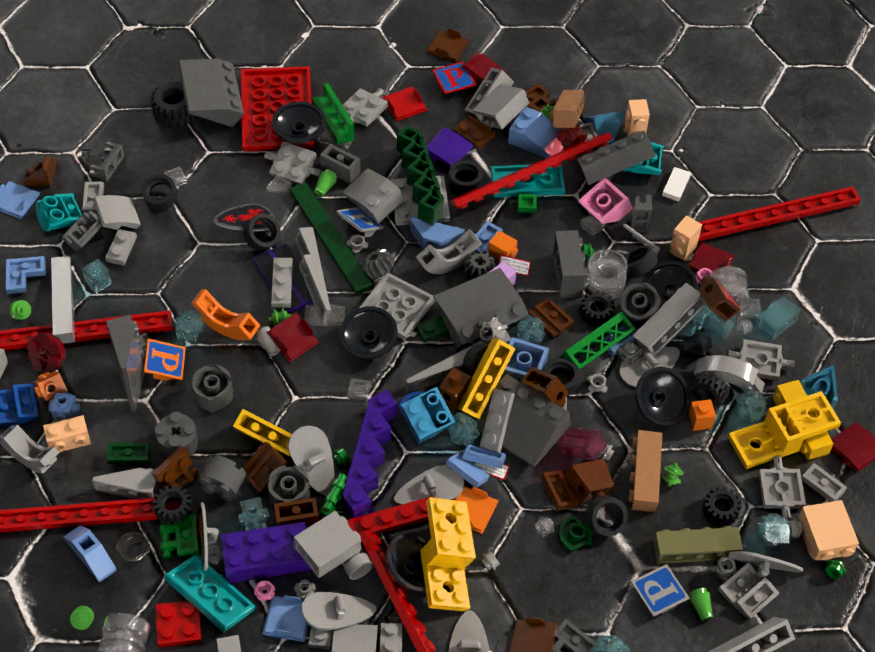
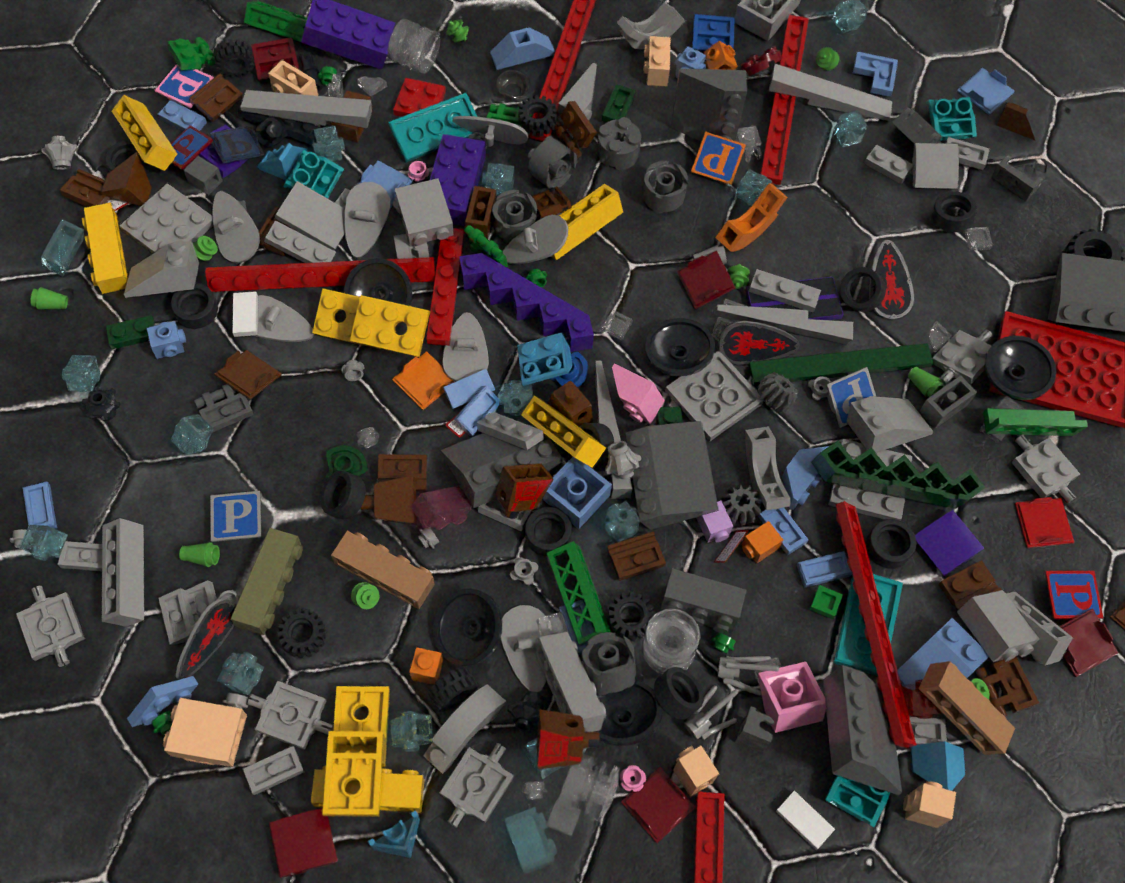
camera: 110 degrees right, 10 degrees up
(339, 288) = (755, 341): none -> shield
(427, 345) = (637, 394): none -> bright pink slope
(501, 211) = (824, 569): none -> medium blue tile
(602, 242) = (730, 668): none -> light grey plant
(827, 567) = (160, 697): none -> medium blue plate

